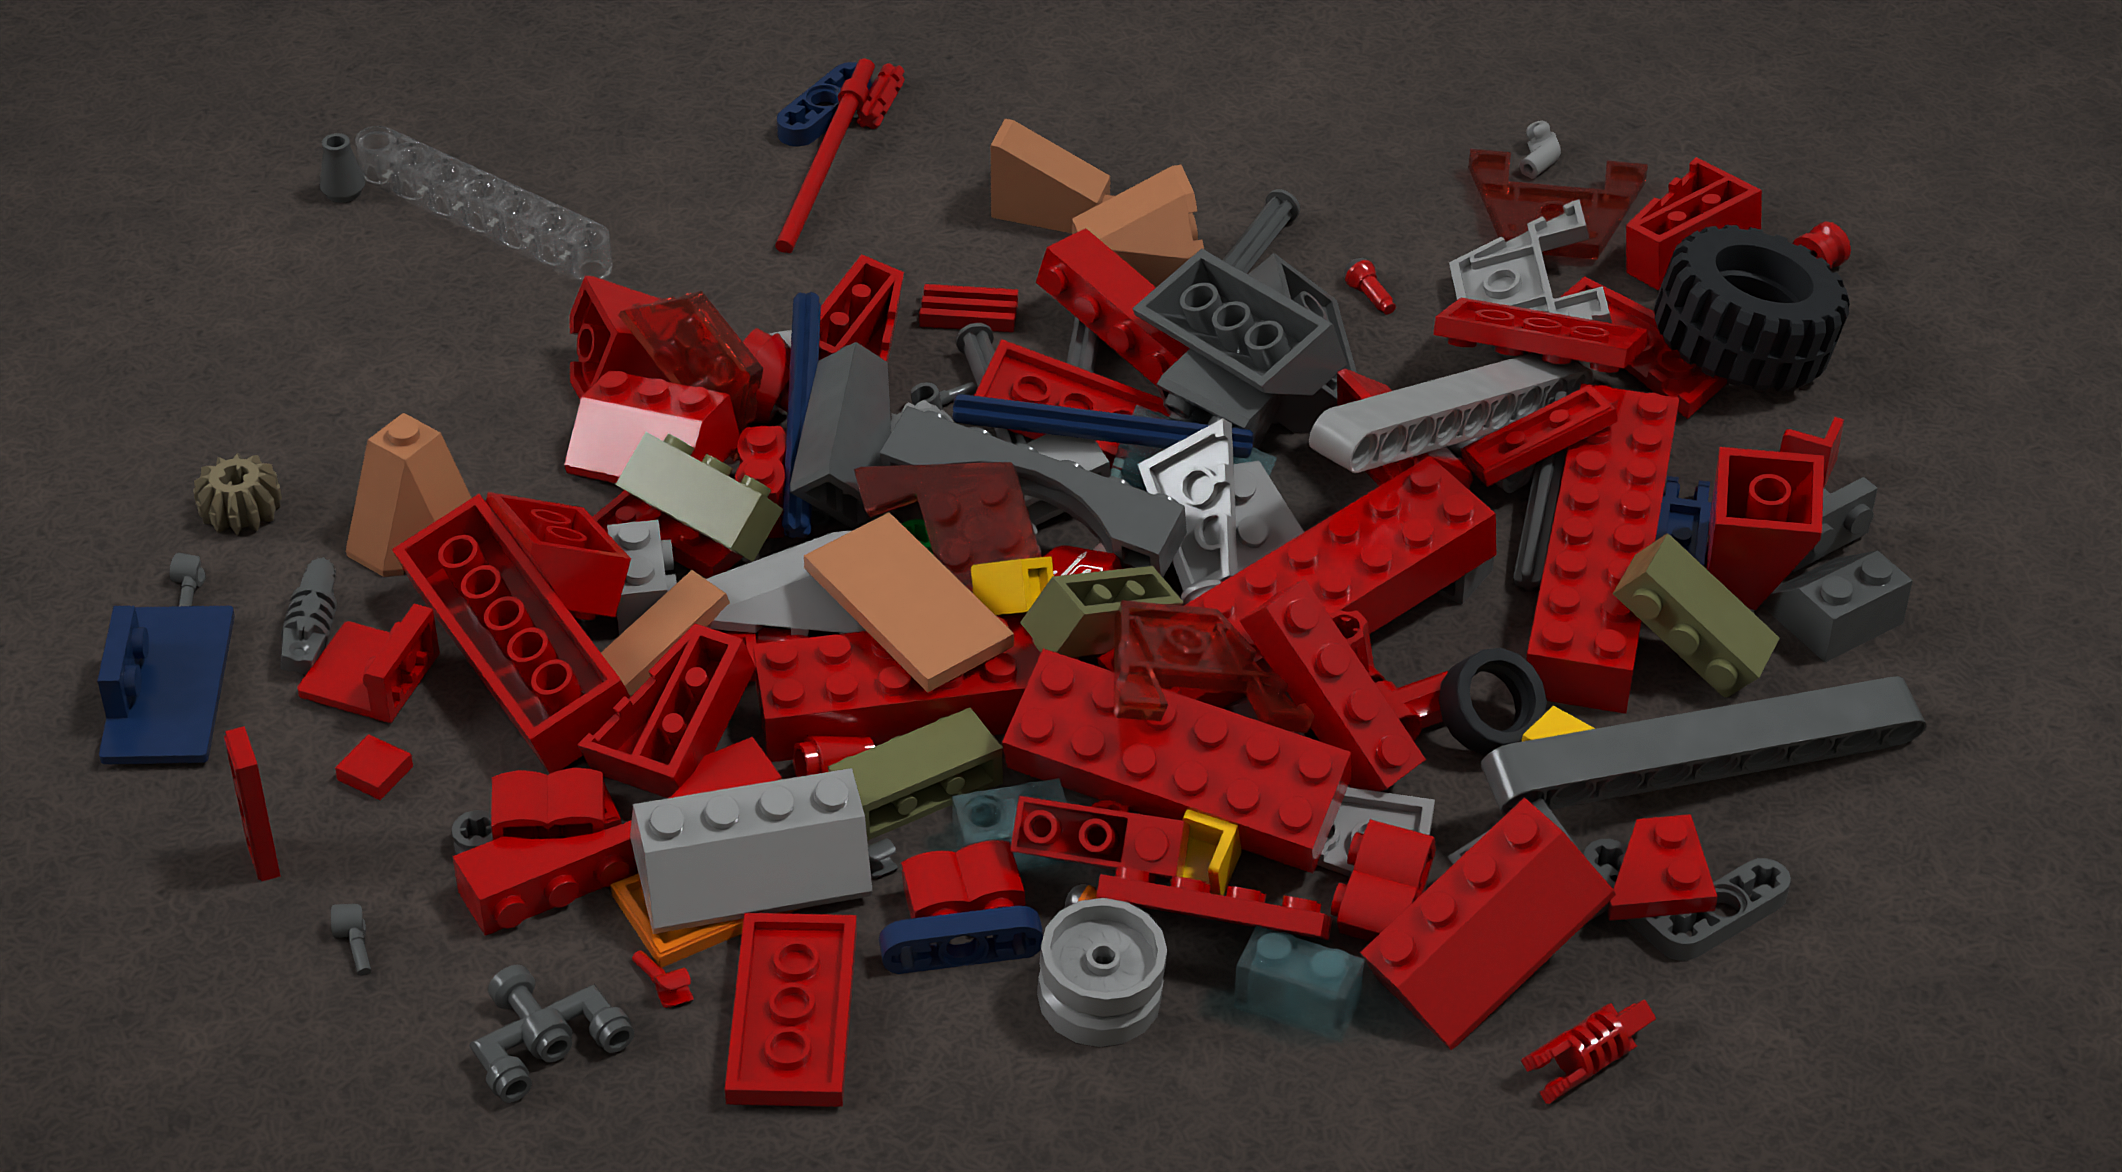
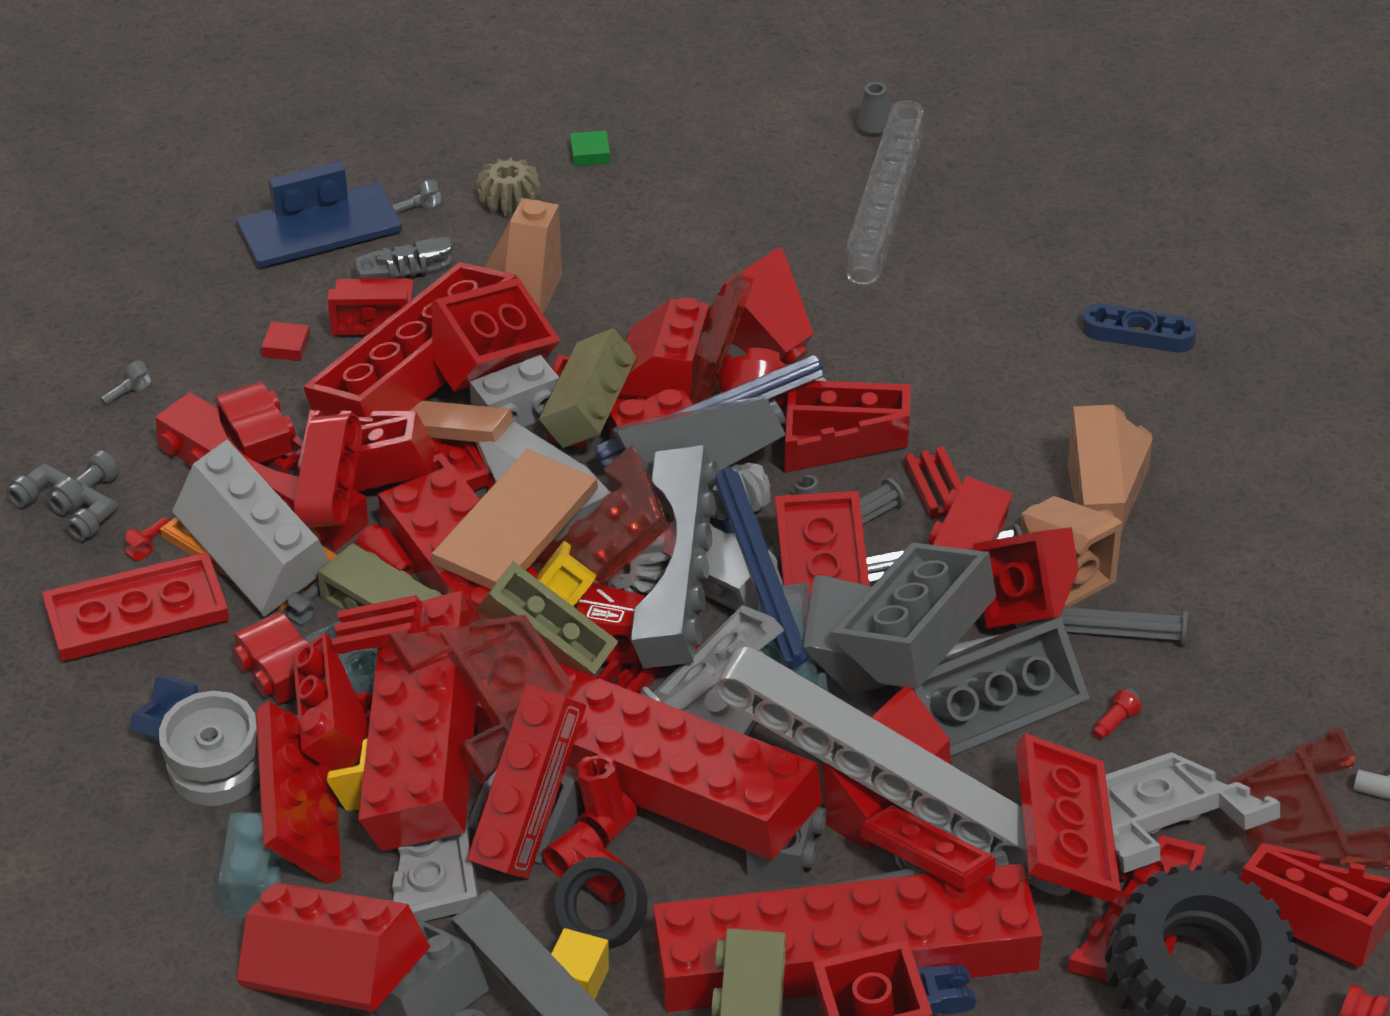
camera: 70 degrees right, 0 degrees up
(205, 414) = (590, 148): none -> green tile
(251, 804) = (180, 280): red tile -> none
(727, 731) = (328, 470): none -> red beam
(850, 98) = (1141, 333): red bar -> none
(881, 96) = (1171, 355): red axle -> none
(998, 1014) = (165, 695): none -> dark blue bracket
(1014, 930) = (228, 665): dark blue beam -> none
(1064, 699) = (376, 618): none -> red tile
(1189, 227) = (1030, 575): none -> red slope
(1386, 878) = (382, 874): red brick -> none

